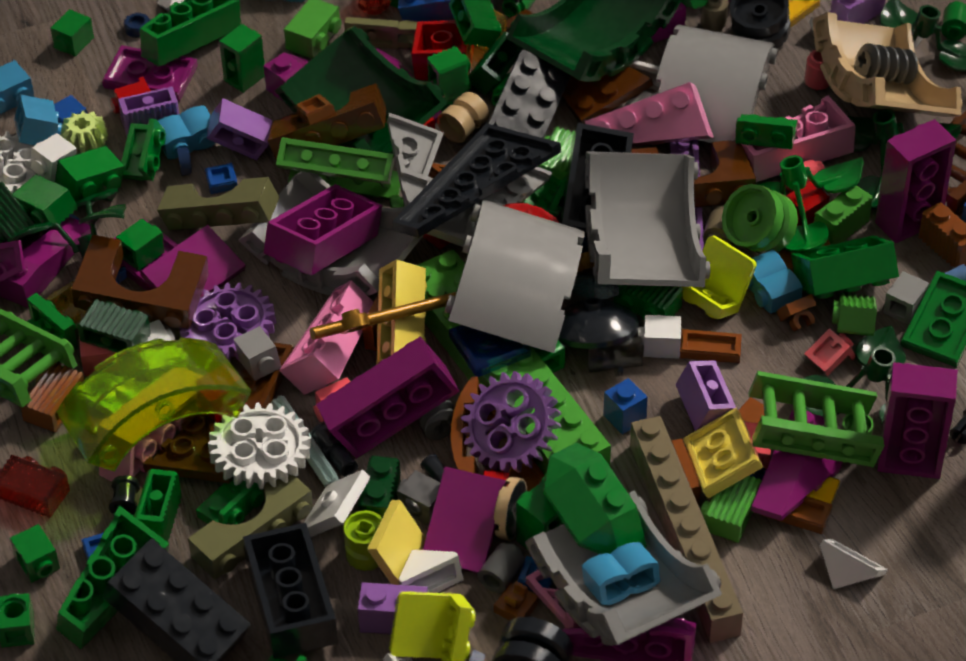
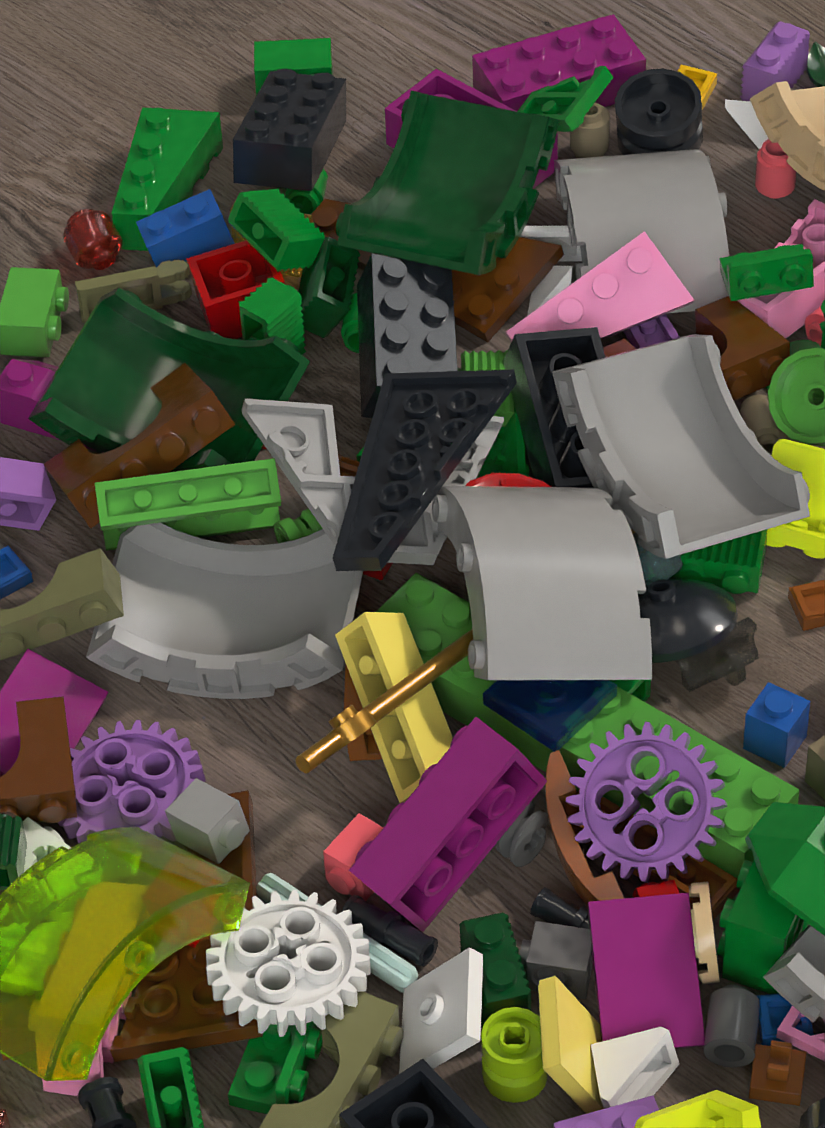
camera: 20 degrees left, 0 degrees up
(315, 109) = (116, 427): dark orange tile -> none
(322, 229) = (214, 603): magenta brick -> none
(323, 360) = (293, 807): bright pink wedge -> none
(463, 117) = (325, 374): tan wheel -> none
(661, 336) = (772, 604): white brick -> none

